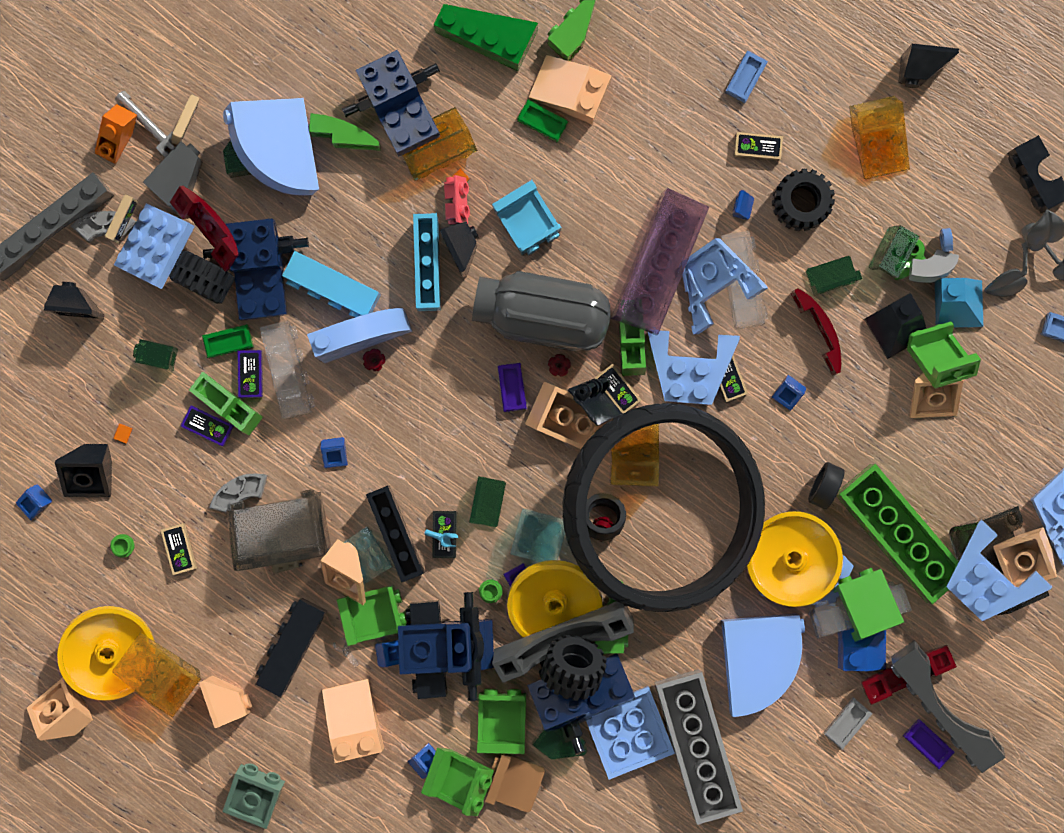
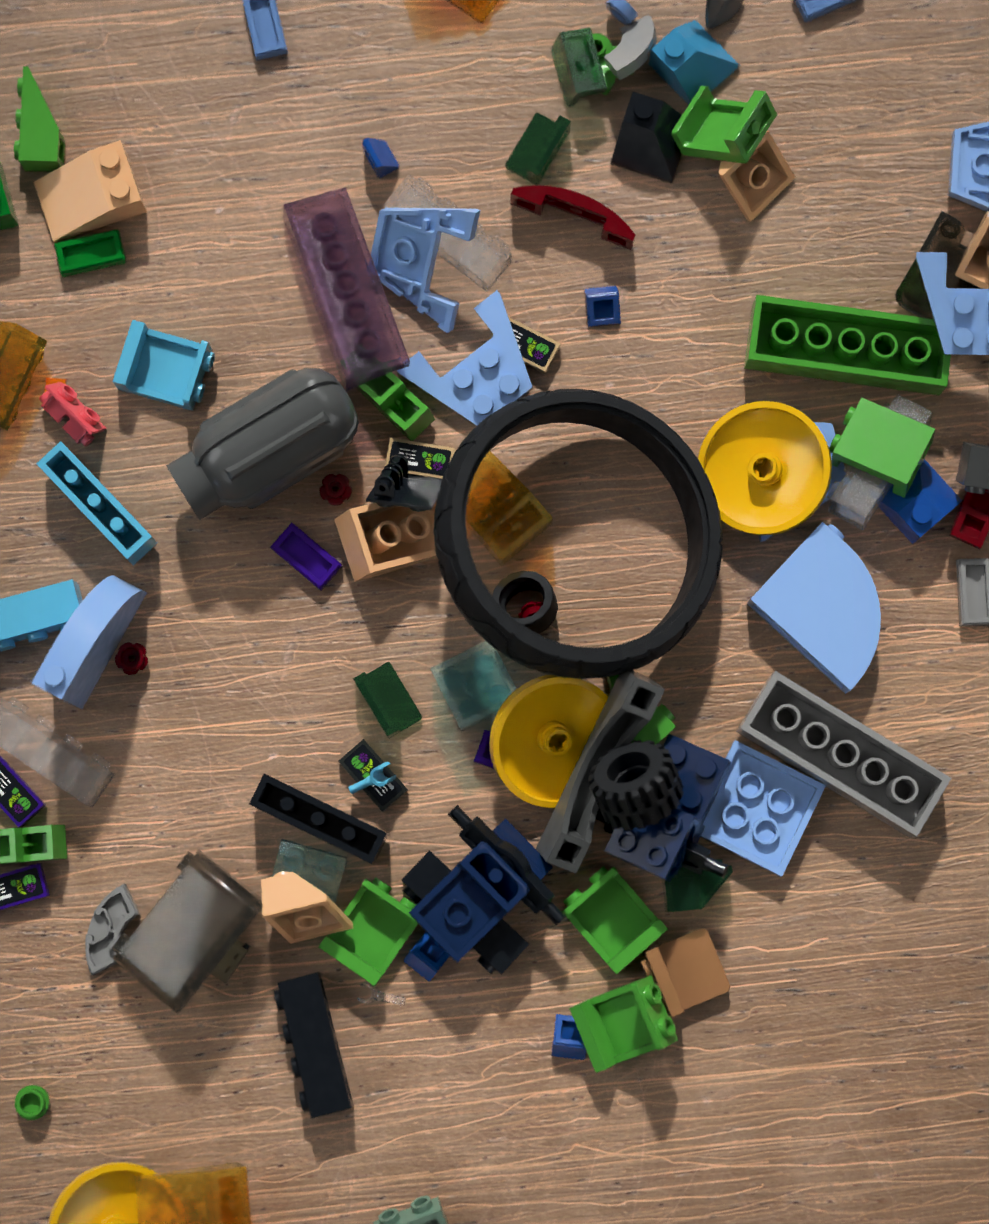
camera: 40 degrees left, 5 degrees down
(178, 549) = (97, 1050): tile -> none
(224, 701) = (294, 1167): light nougat slope -> none
(334, 452) = (176, 795): blue slope -> none
(352, 721) = (452, 1064): light nougat slope -> none
(461, 244) = (117, 454): black slope -> none
(490, 591) = (476, 791): bright green plate -> none
(758, 146) = (341, 83): tile -> none
(812, 183) = (431, 71): black tyre -> none
(826, 485) = (727, 363): black tyre -> none

